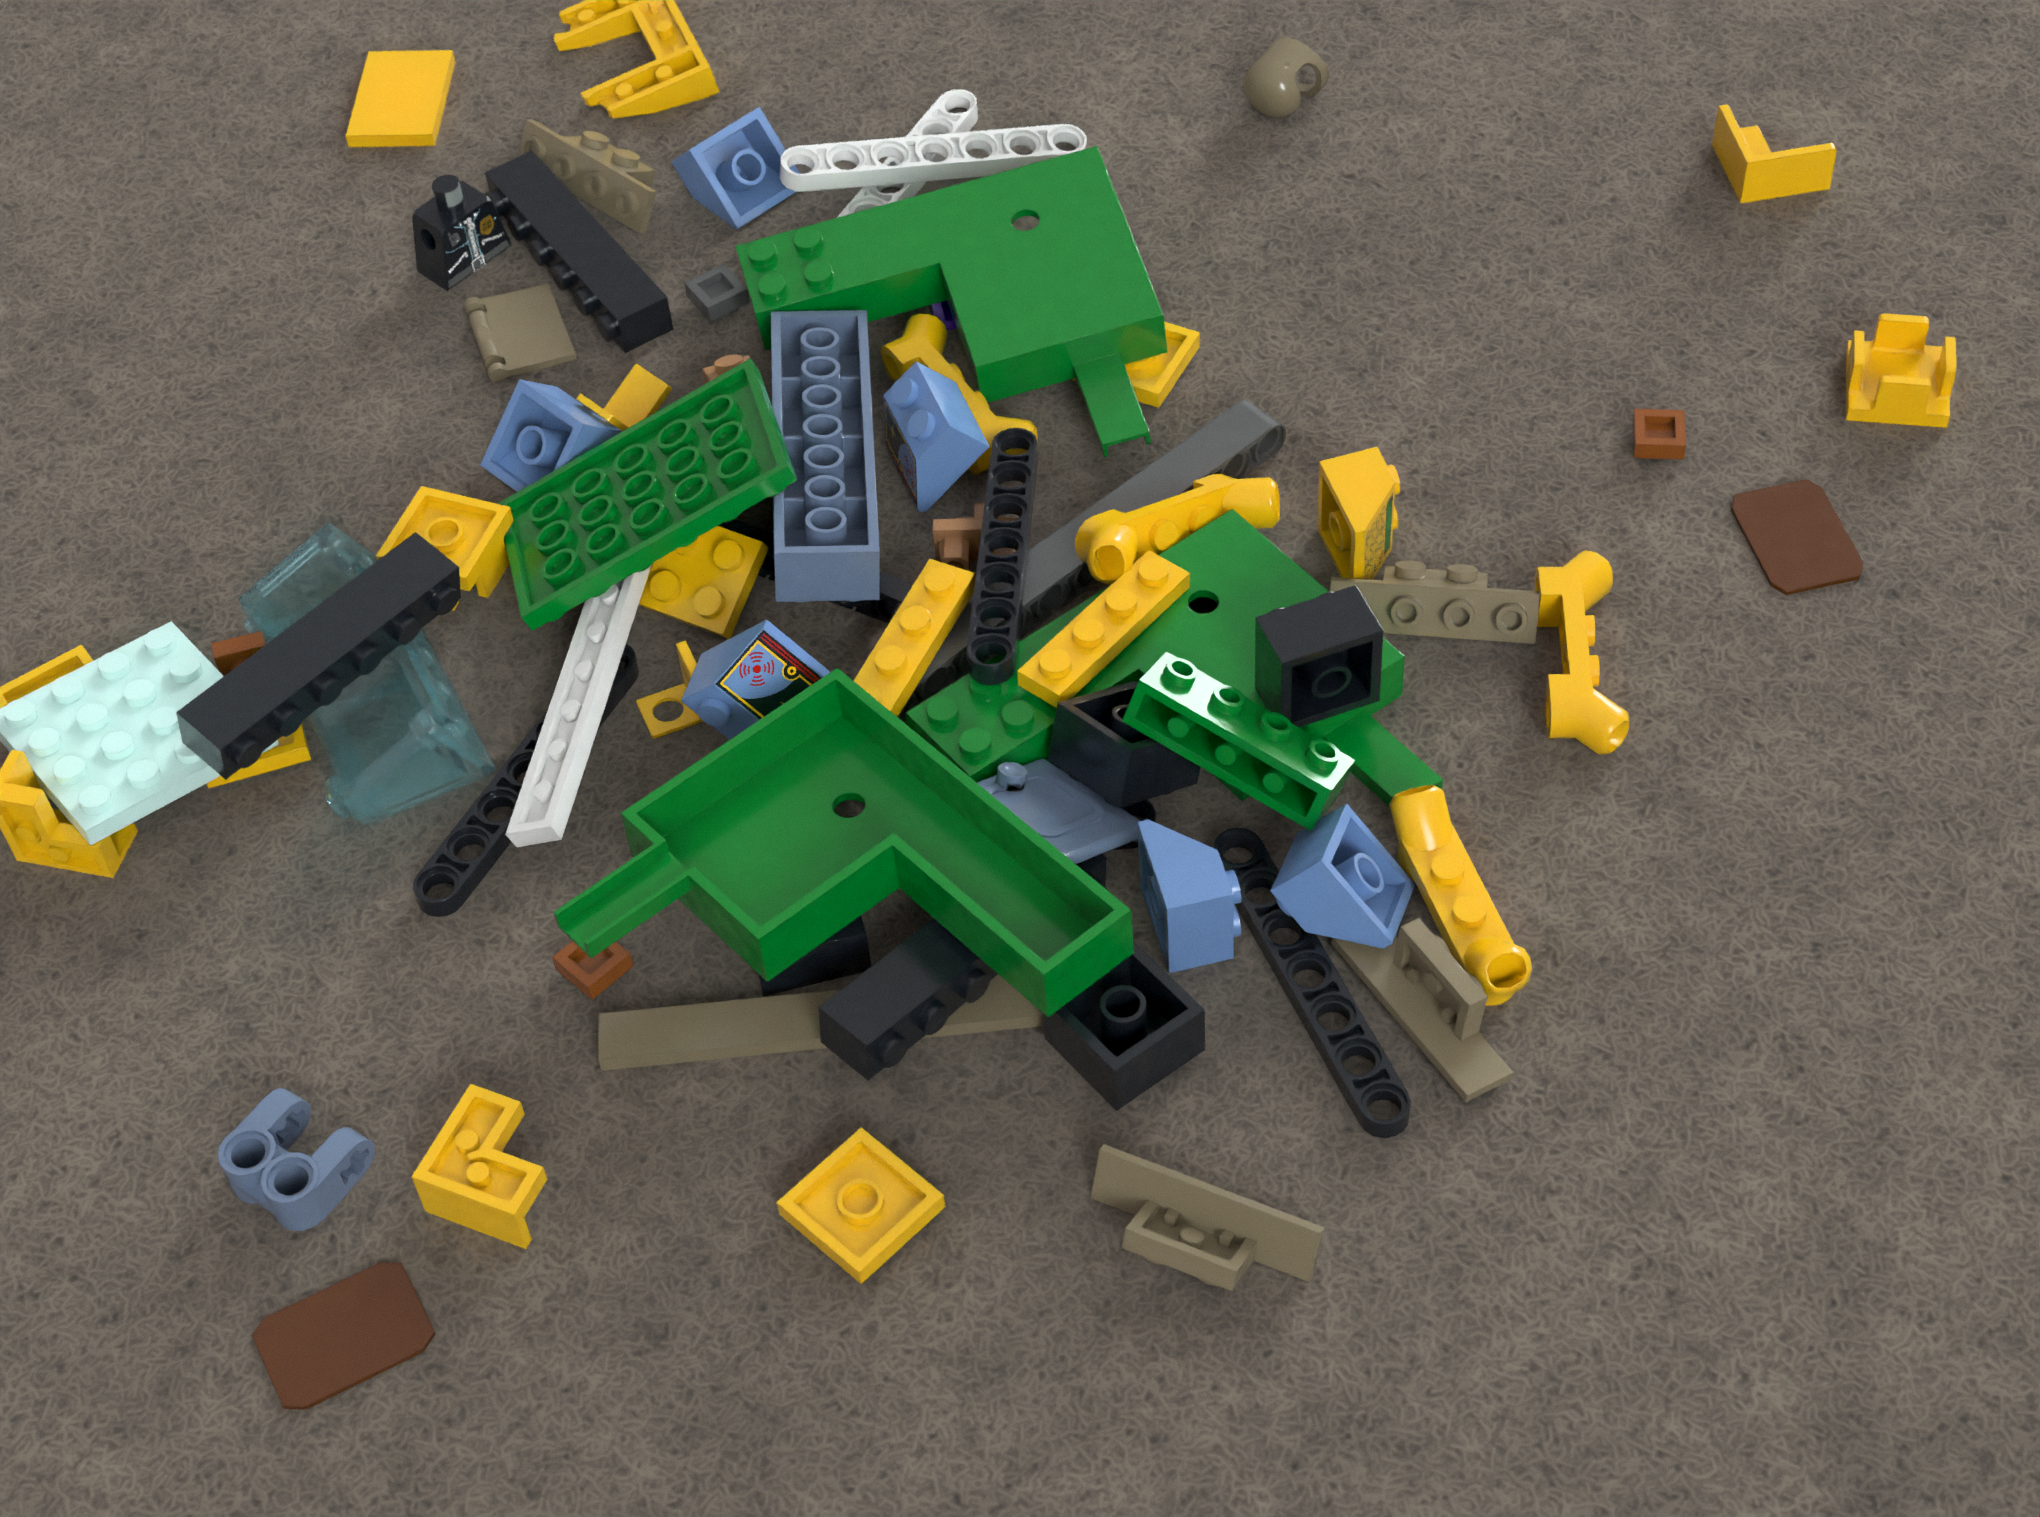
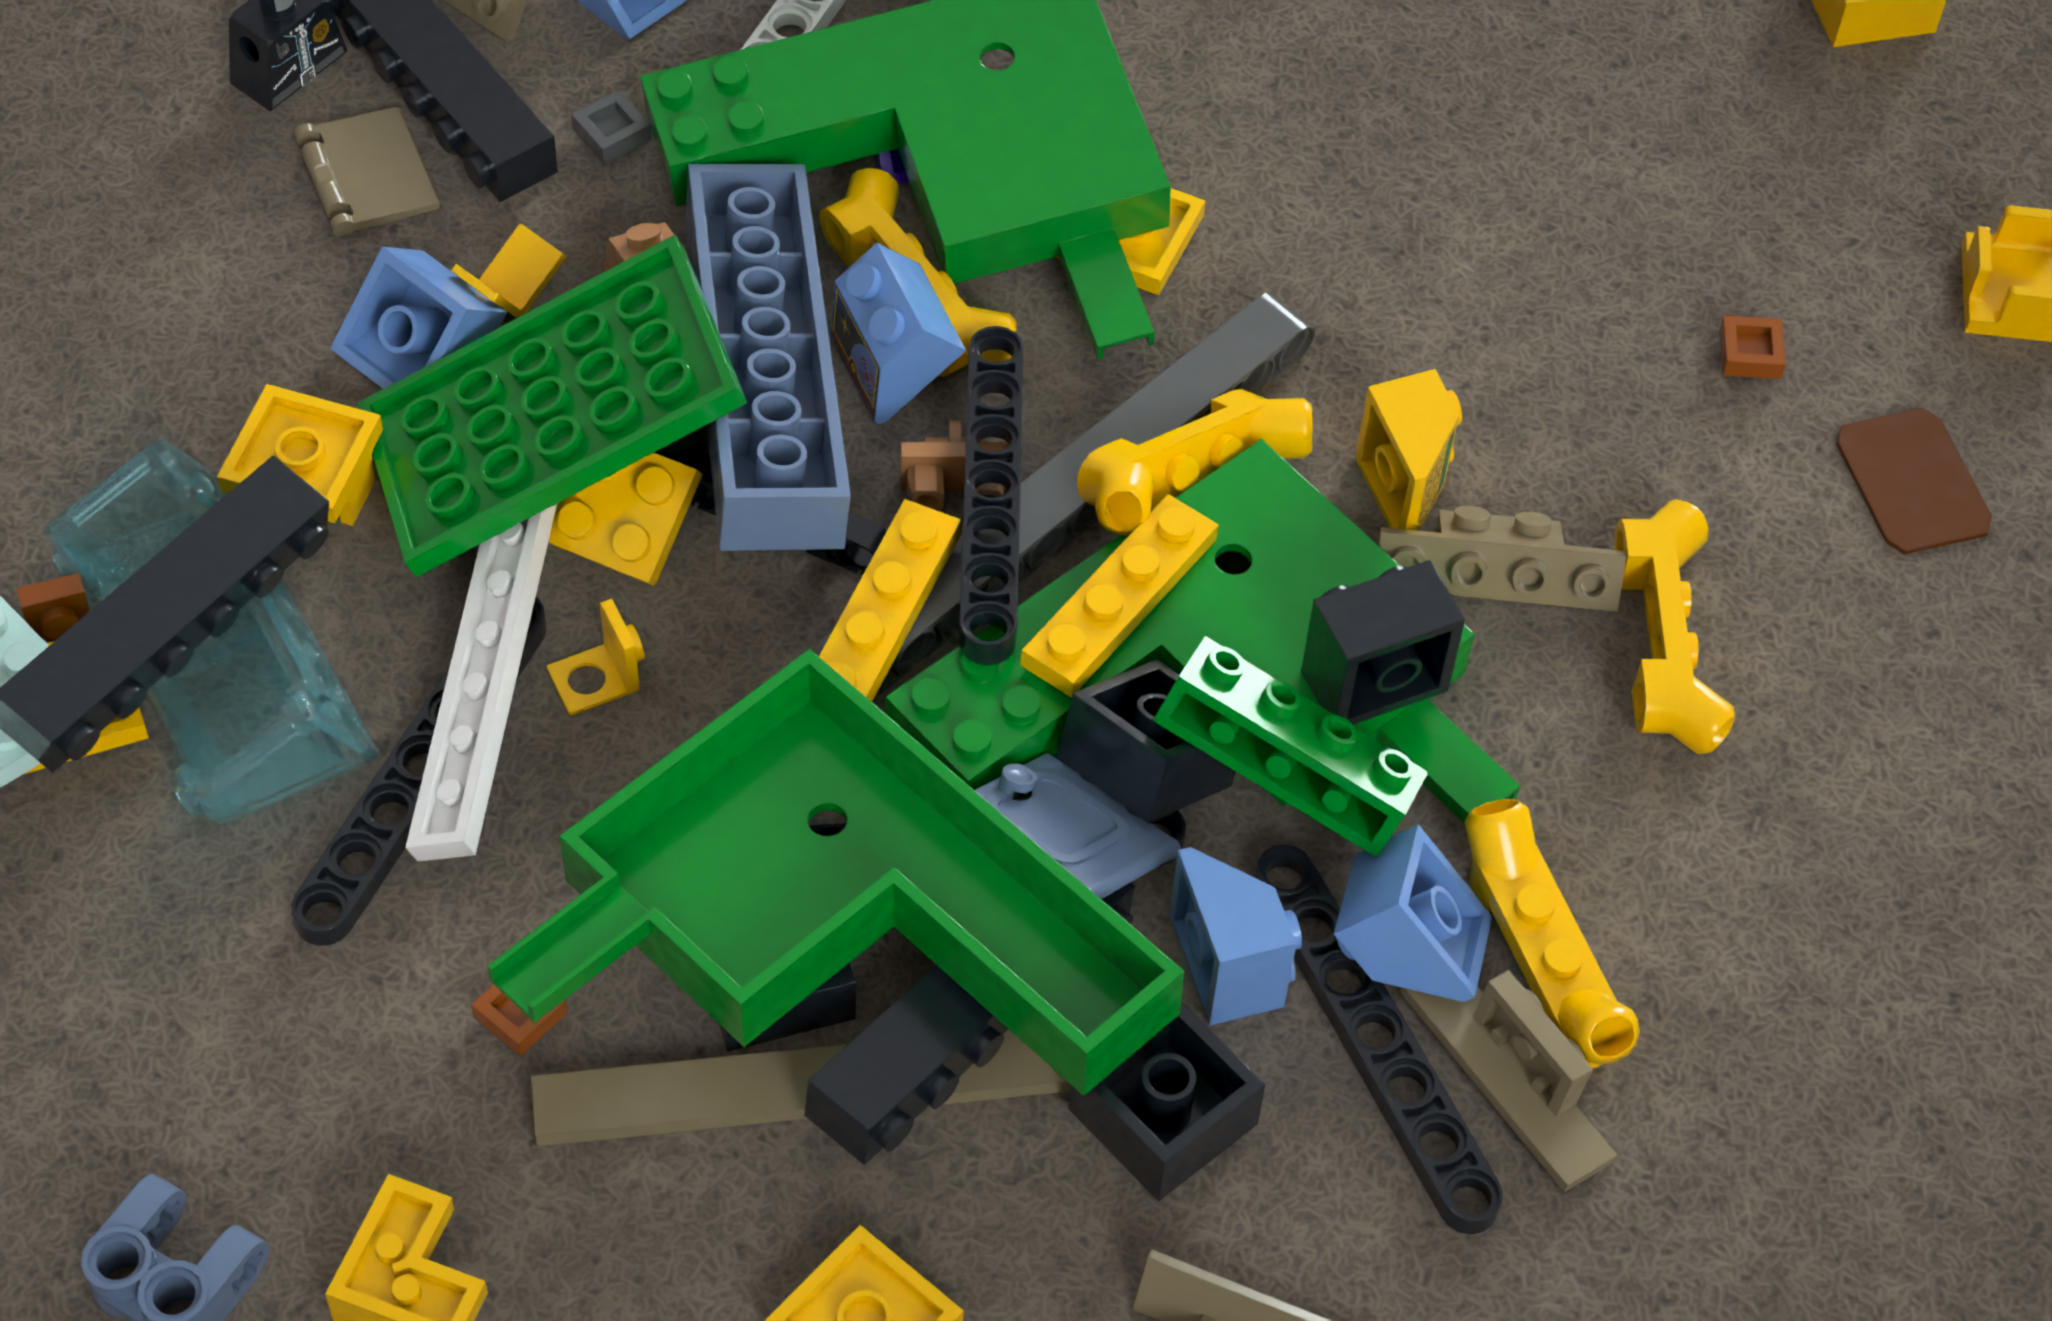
camera: 10 degrees left, 5 degrees up
(749, 678) = (699, 658): slope -> none

